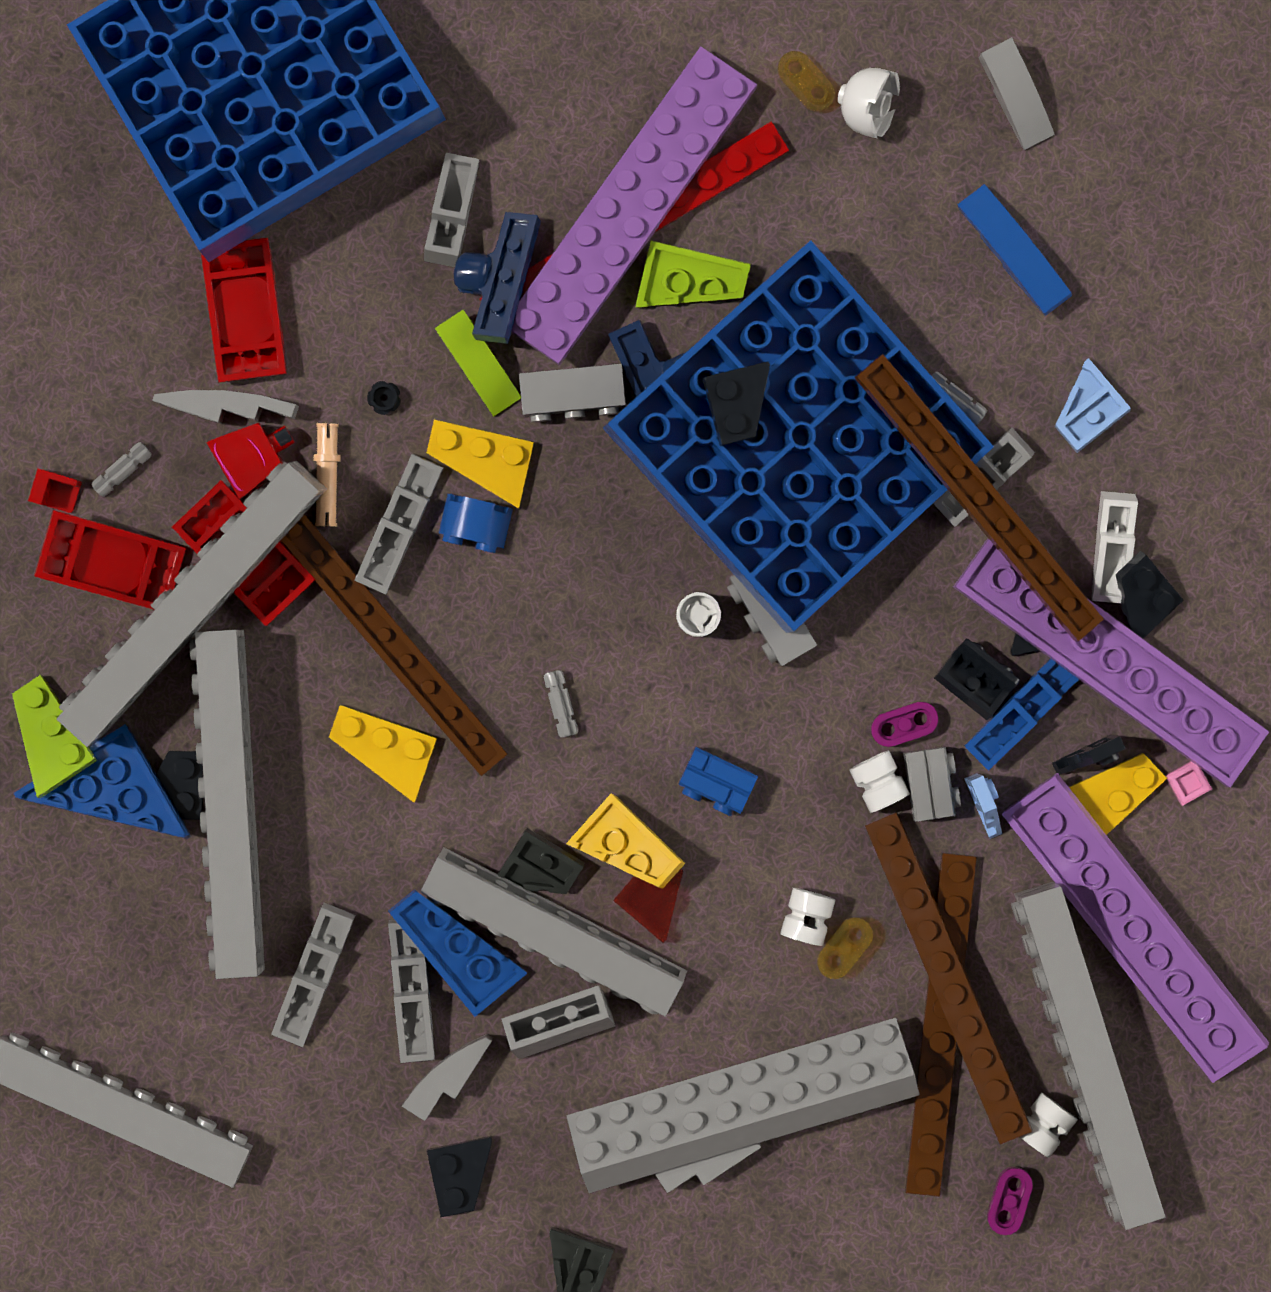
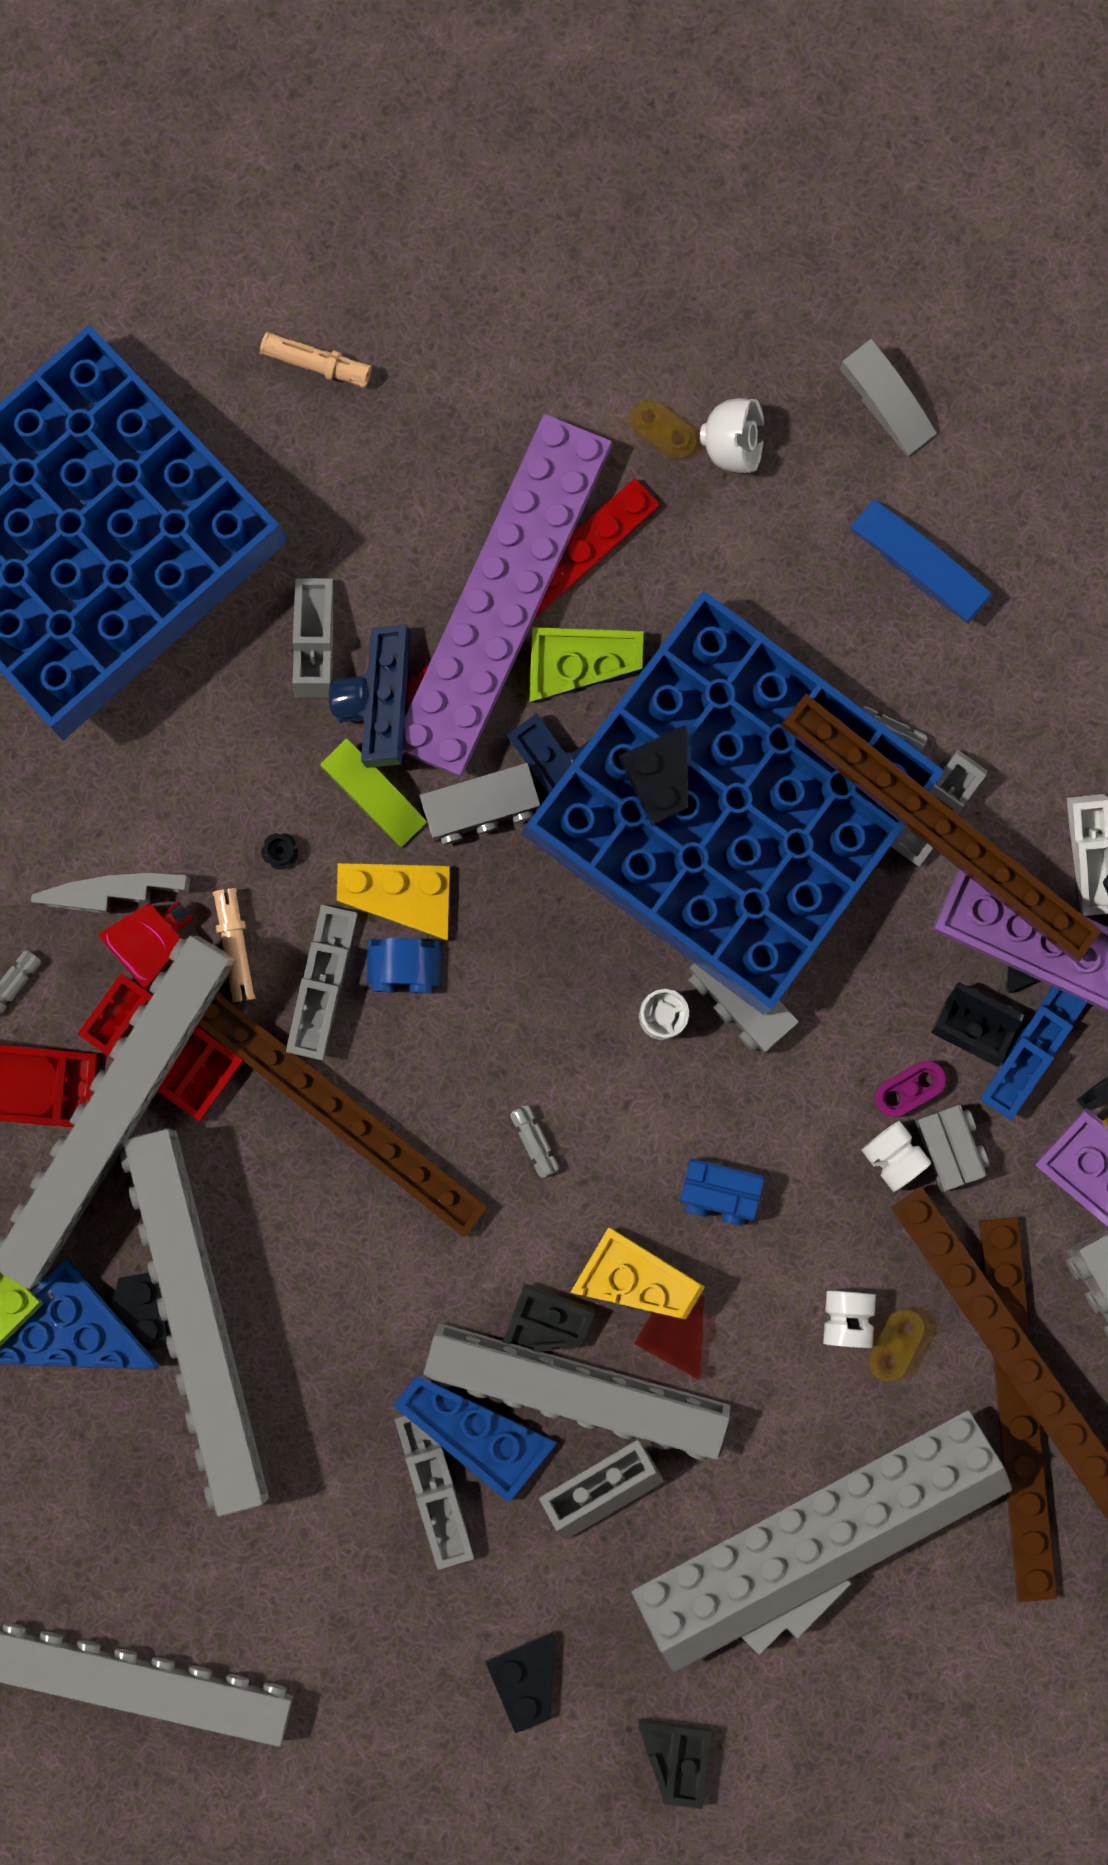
camera: 10 degrees left, 5 degrees down
(244, 312) = (112, 789): red slope -> none
(313, 974) = (323, 1492): light grey slope -> none
(385, 748) = (354, 1227): yellow wing -> none
(446, 1077) = (491, 1575): light grey slope -> none
(983, 795) = (1012, 1149): light blue wing -> none
(1090, 408) = (1036, 712): light blue wing -> none

